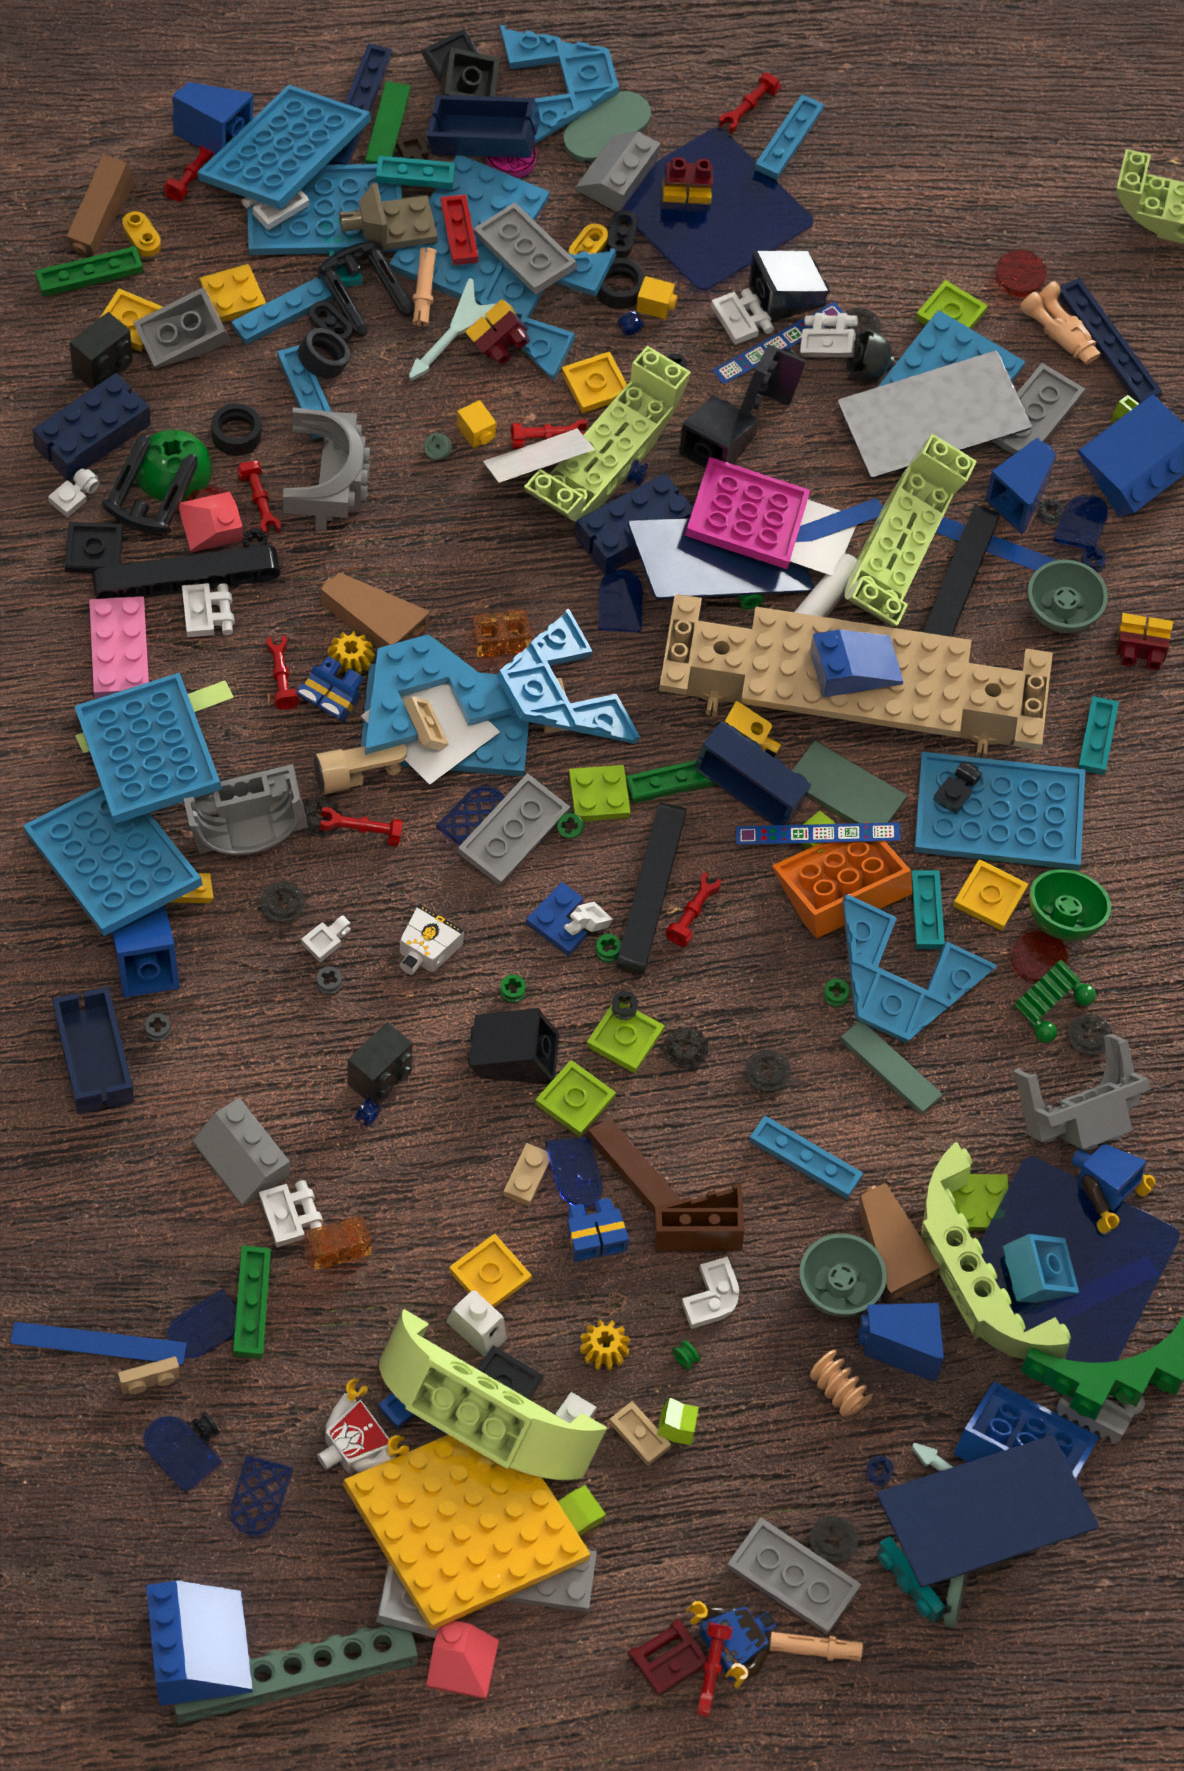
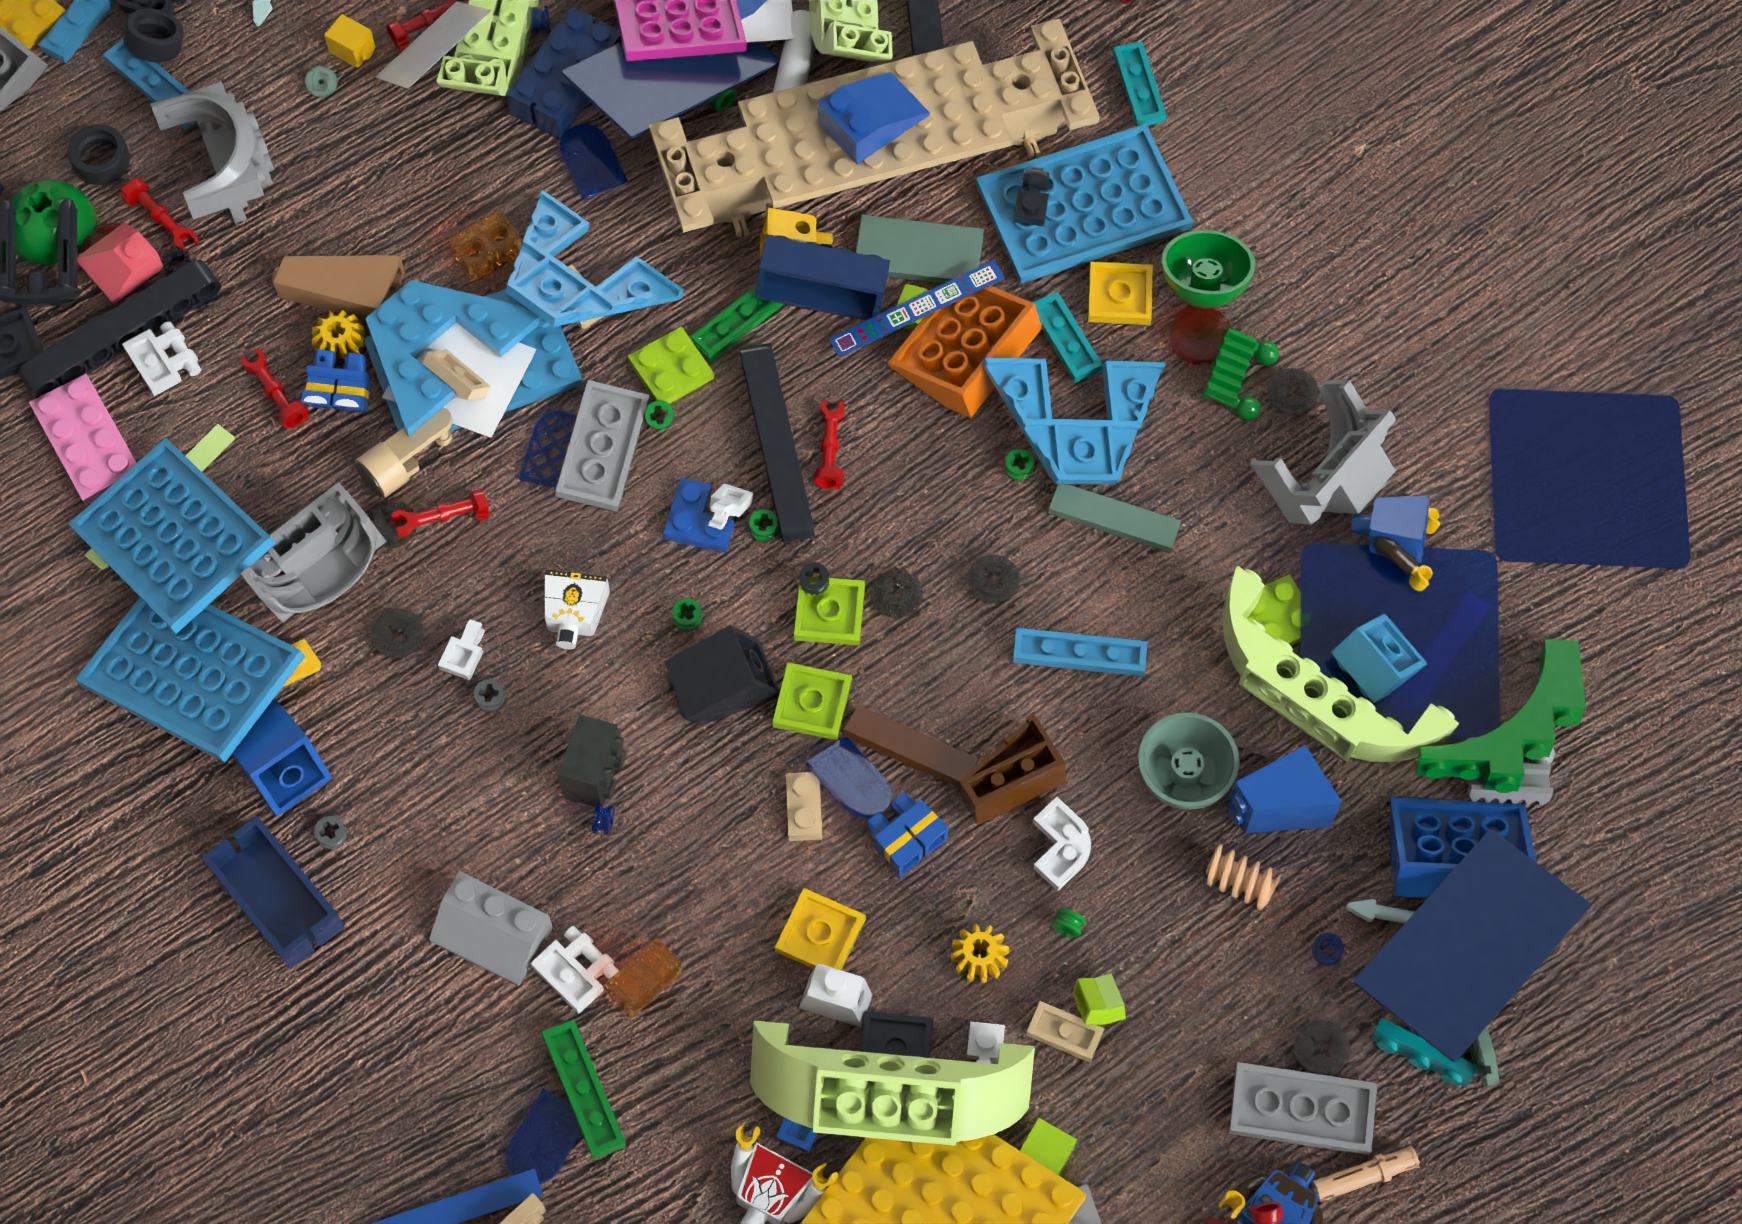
camera: 20 degrees left, 5 degrees up
(895, 1238) = (1218, 695): medium nougat slope -> none

